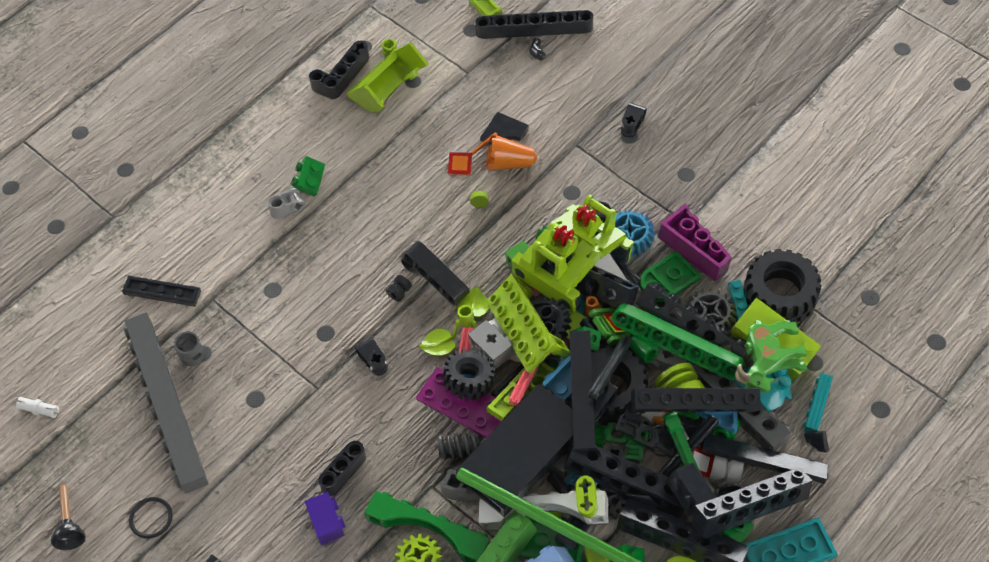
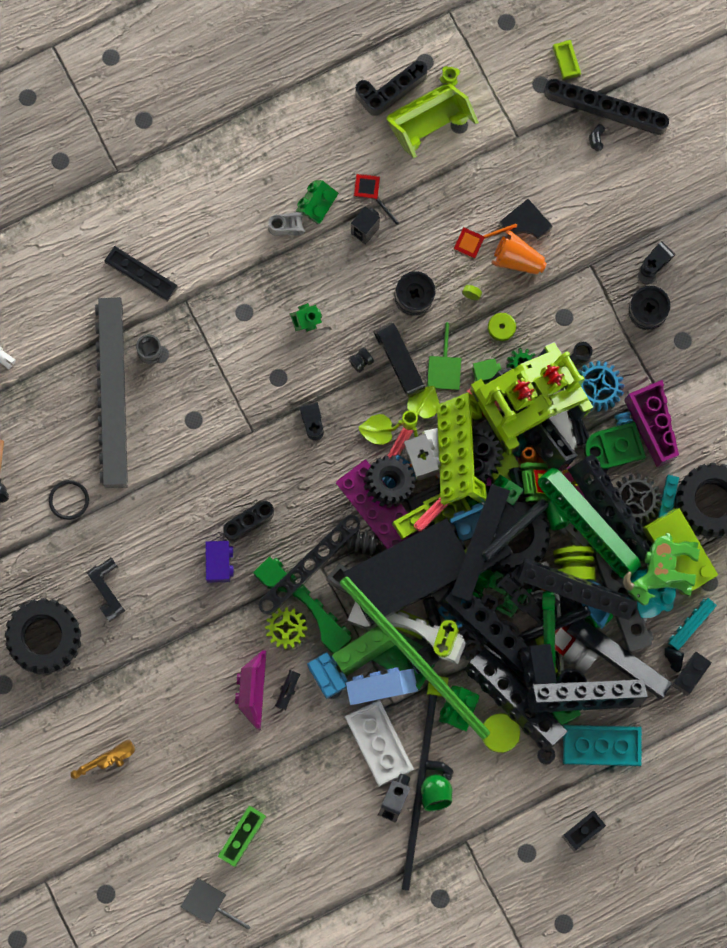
camera: 15 degrees right, 20 degrees up
(332, 270) = (306, 317): none -> green brick
(352, 152) = (367, 187): none -> piece
(359, 176) = (365, 224): none -> black brick
(418, 491) = (314, 556): none -> black beam
(426, 214) = (411, 283): none -> black wheel
(481, 271) = (444, 371): none -> bright green piece
(518, 224) = (498, 333): none -> lime piece
(644, 153) = (654, 298): none -> black wheel
(664, 250) = (623, 418): none -> dark azure bush
(841, 447) = (691, 673): none -> black brick

